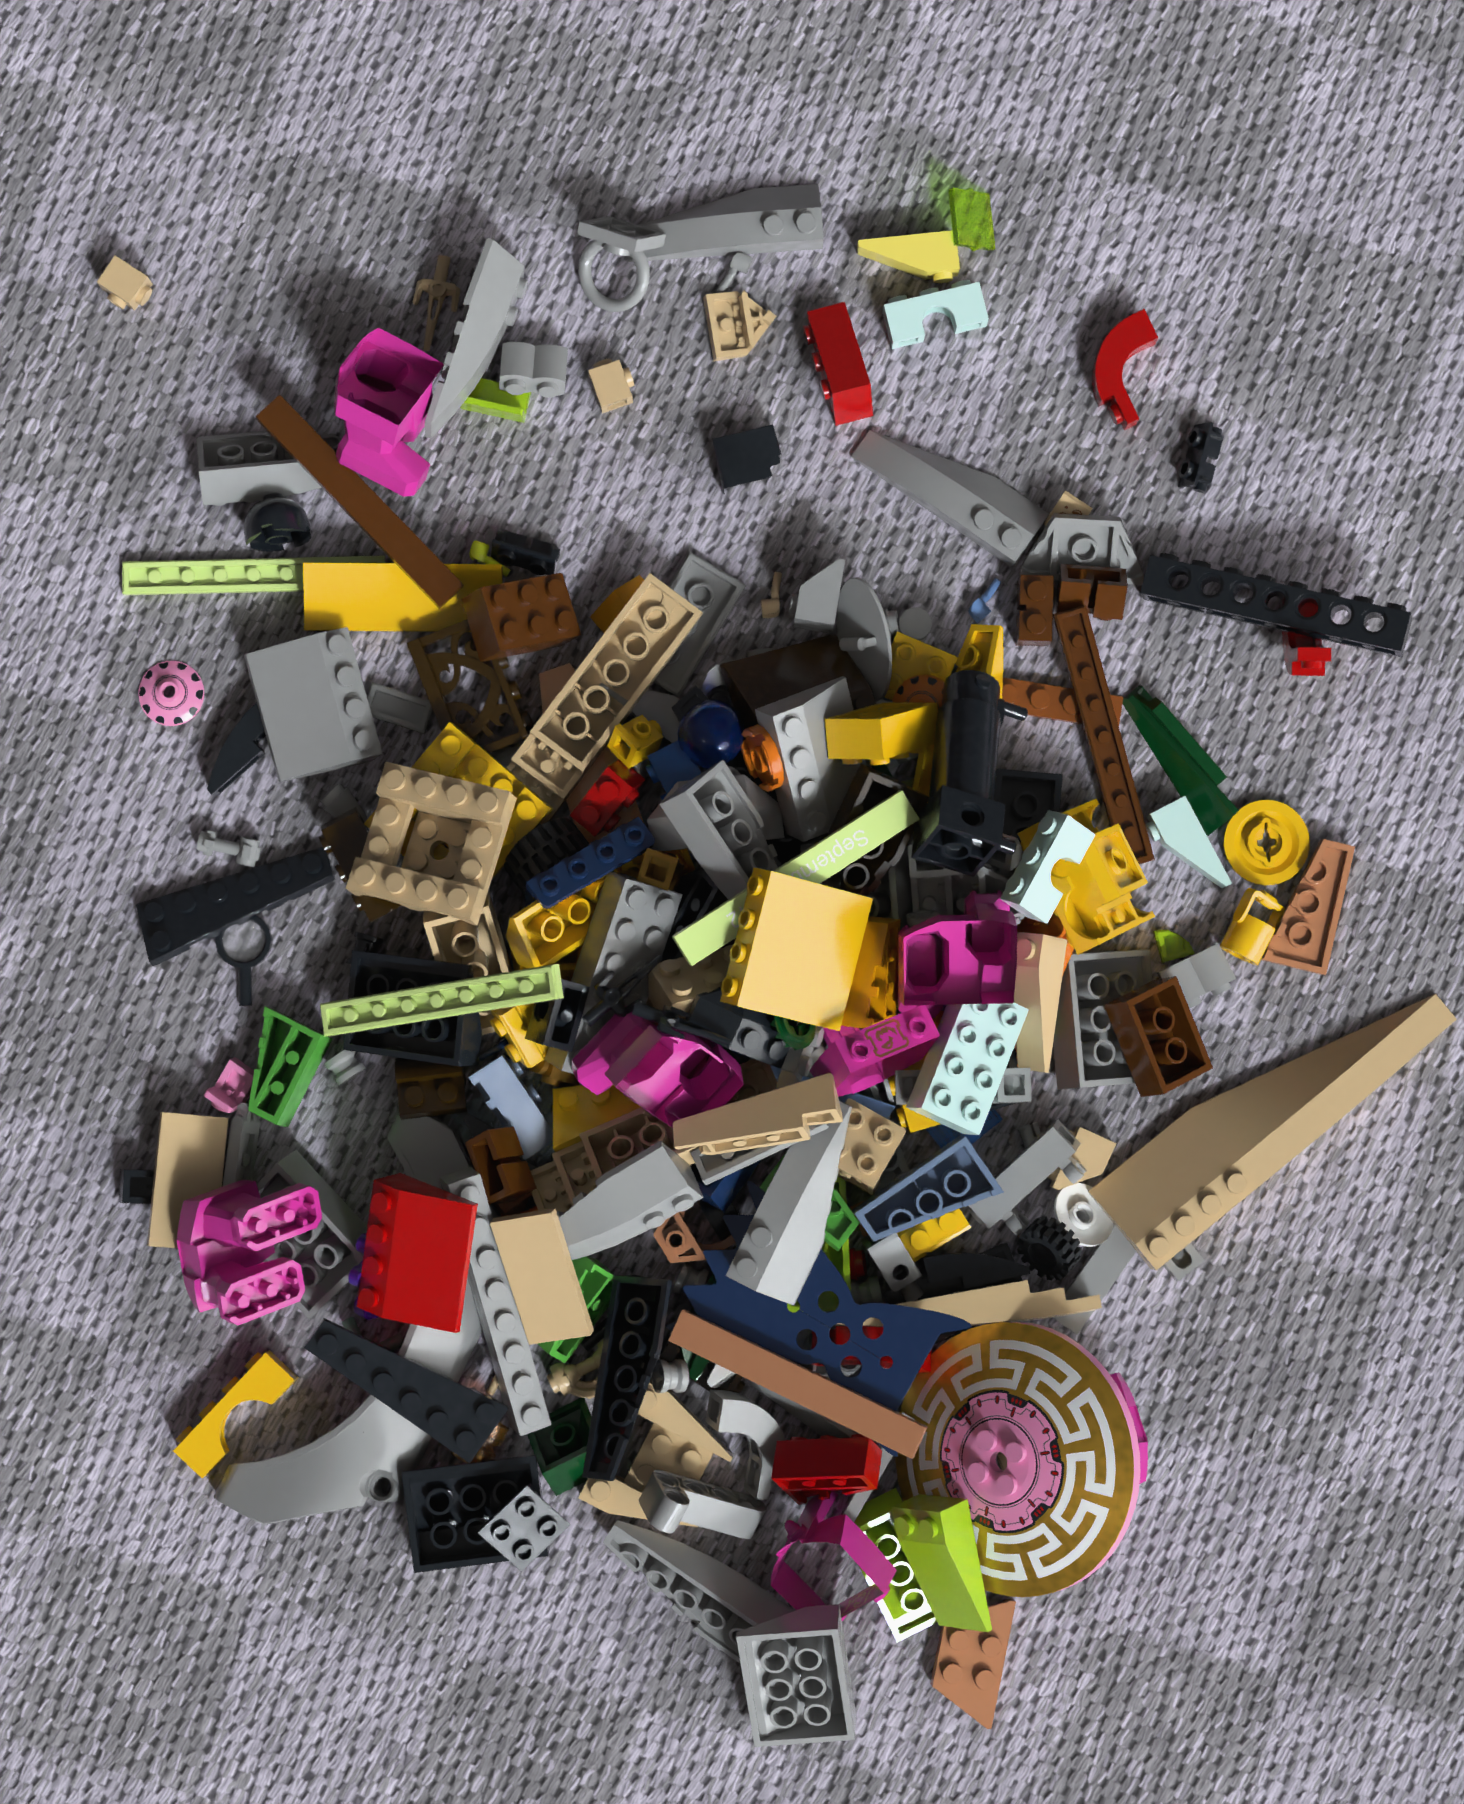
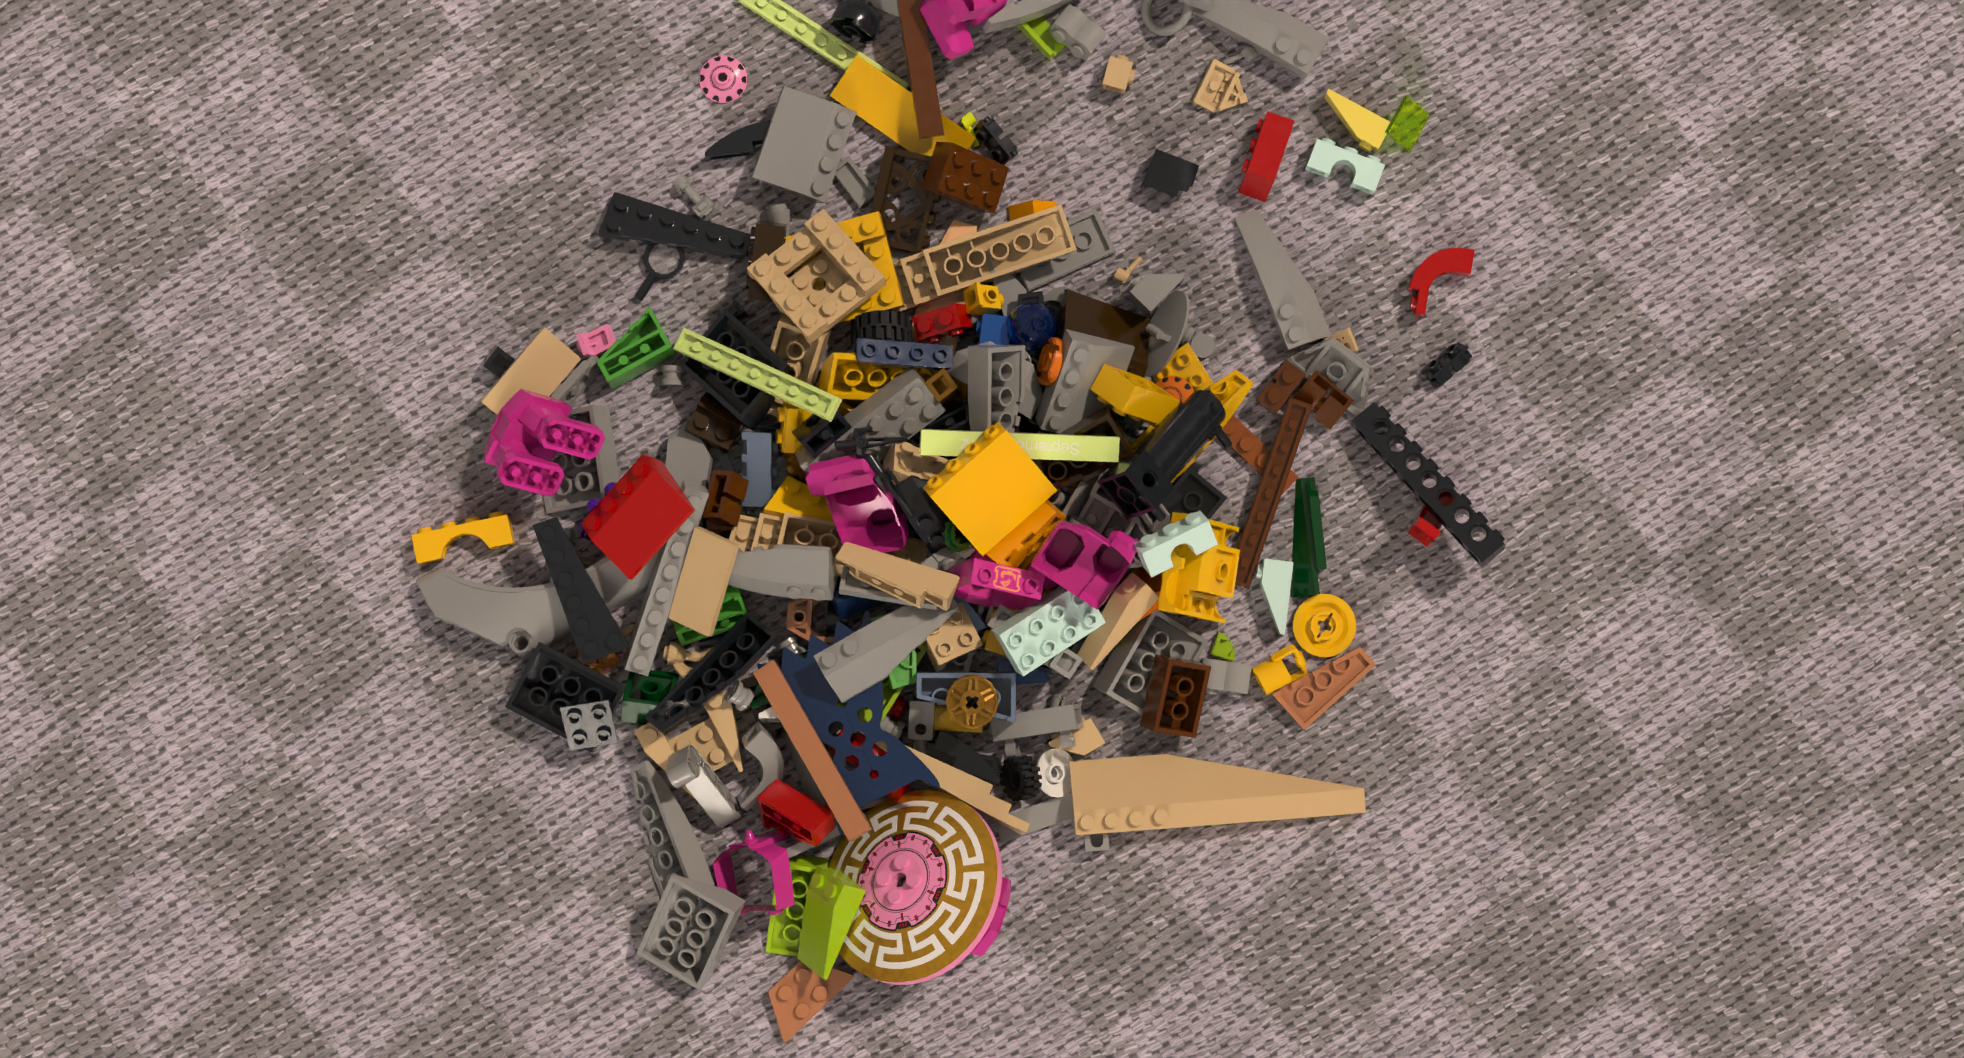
camera: 30 degrees right, 0 degrees up
(931, 1185) = (972, 686): none -> pearl gold wheel
(979, 609) = (1247, 363): medium blue hand -> none

